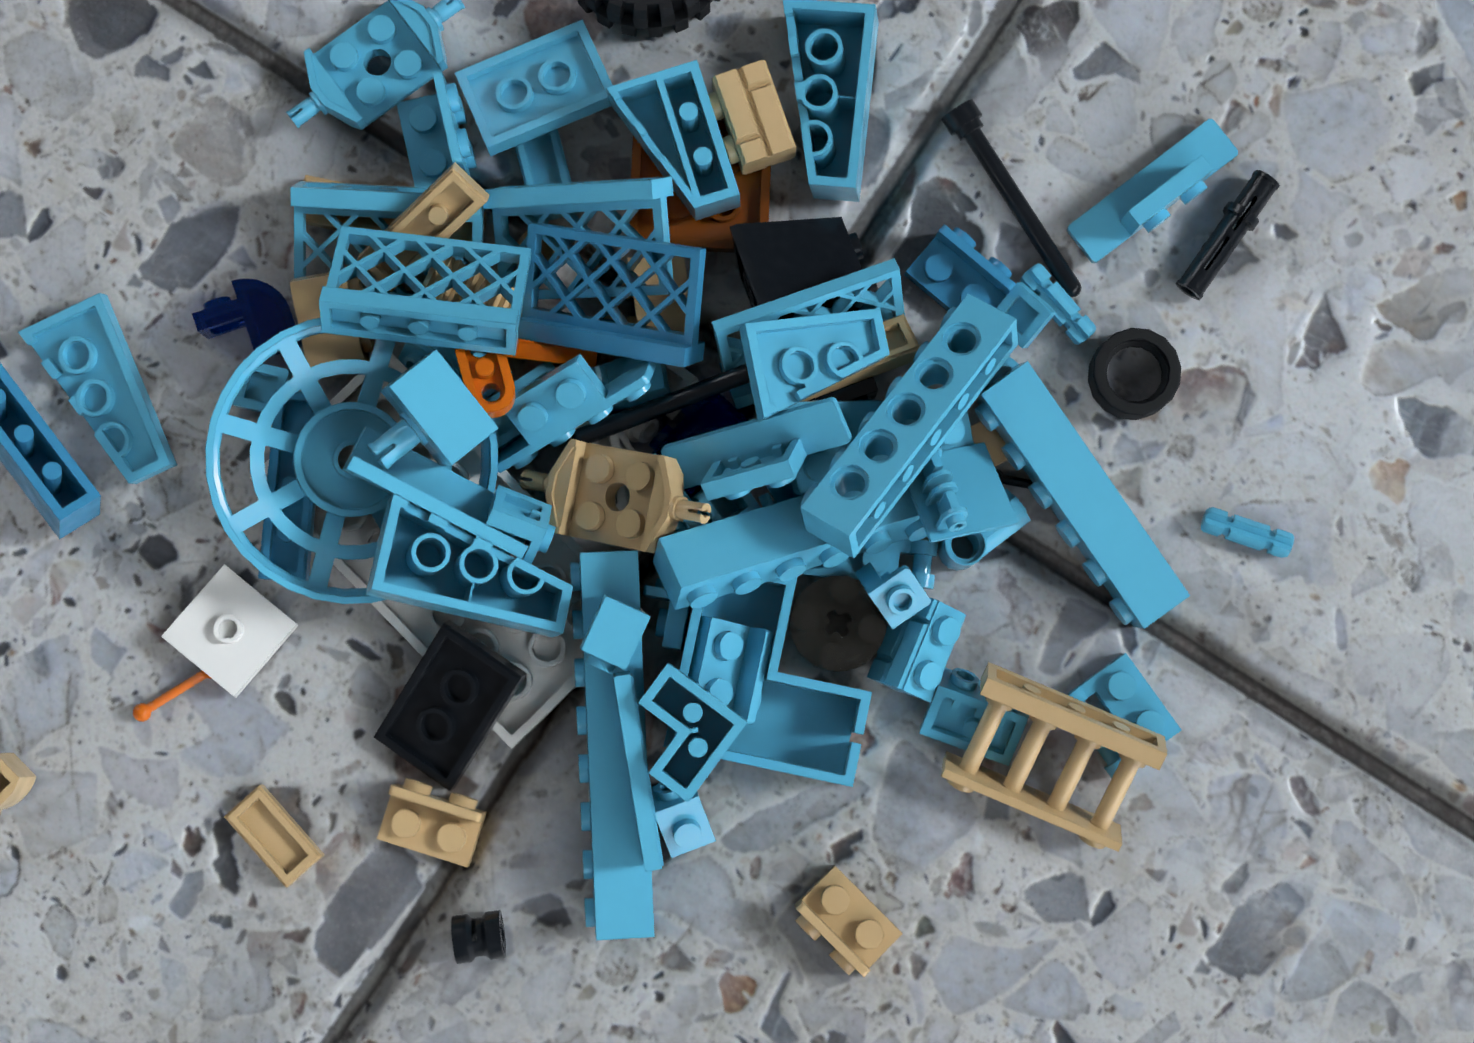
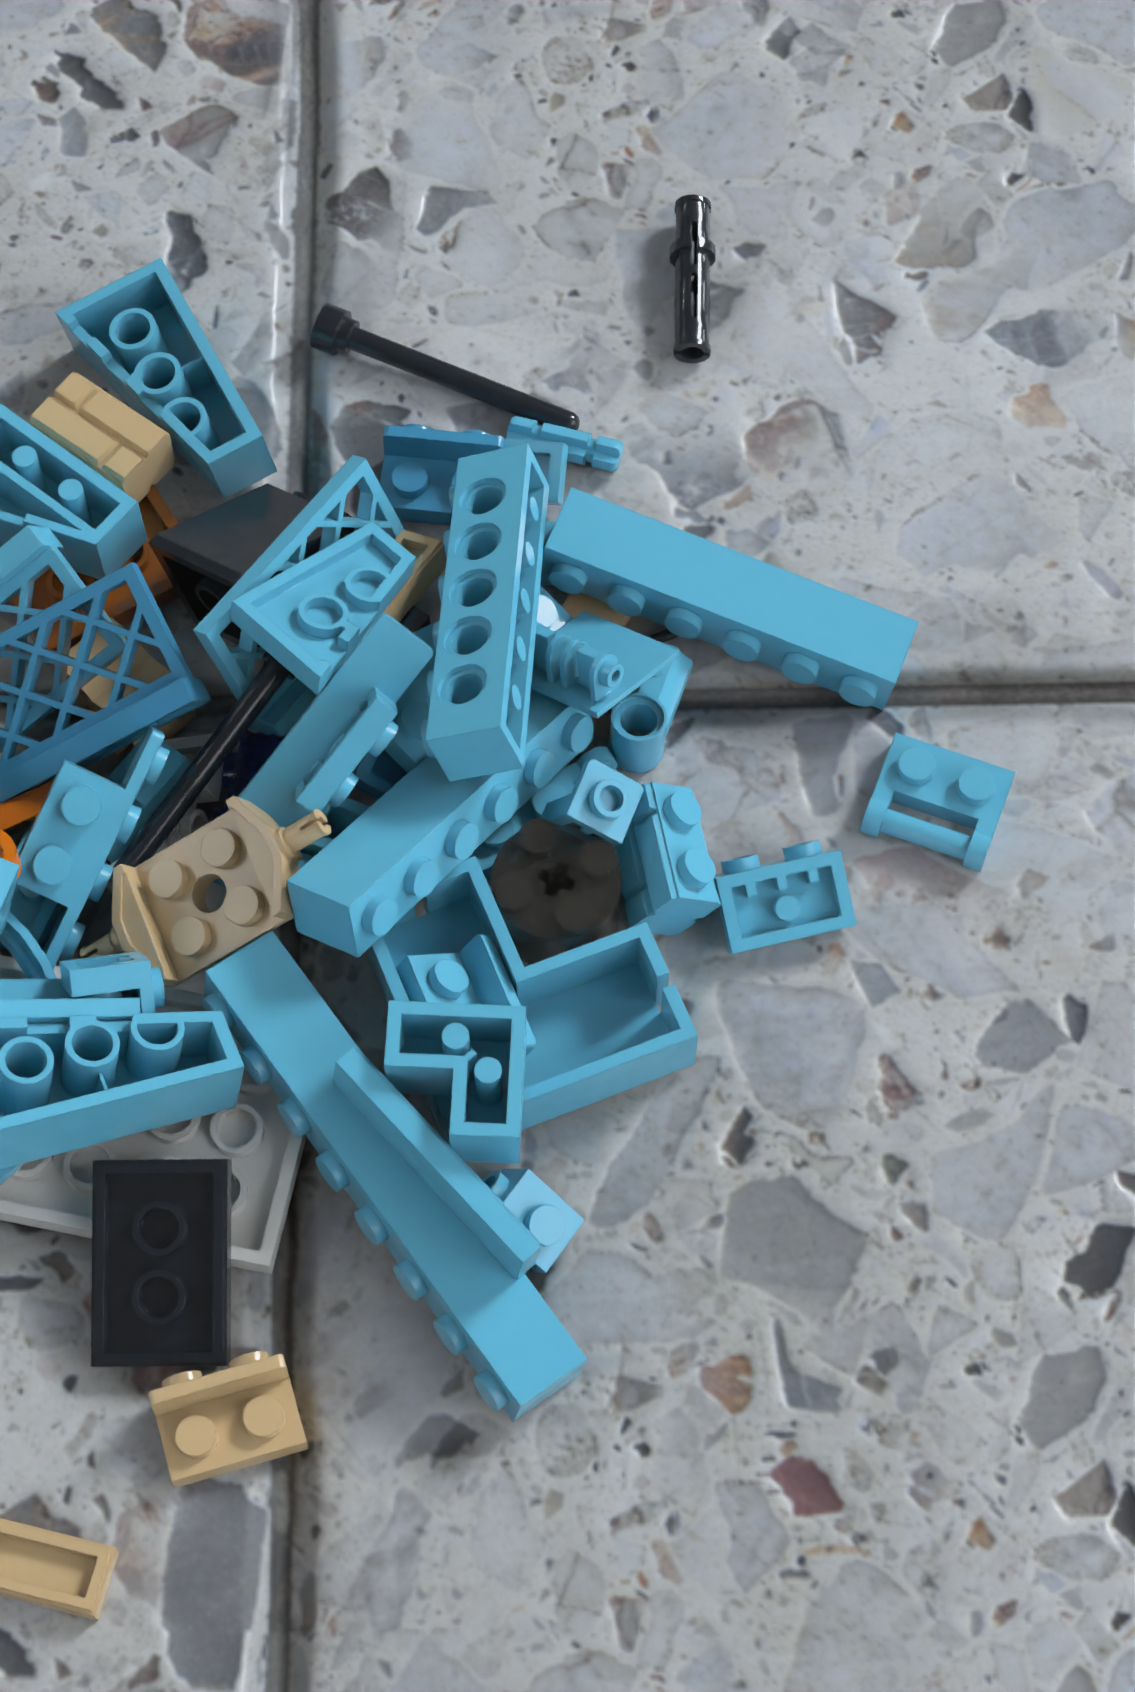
camera: 30 degrees left, 20 degrees down
(489, 933) = (375, 1511): black wheel -> none
(613, 634) = (304, 1024): medium azure brick -> none
(670, 622) = (360, 995): medium azure bracket -> none
(846, 921) = (800, 1213): tan bracket -> none
(1050, 710) = (919, 815): tan fence -> none
(1154, 189) = (584, 286): medium azure bracket -> none
(1159, 348) = (701, 421): black tyre -> none
(1247, 532) = (931, 540): medium azure axle -> none

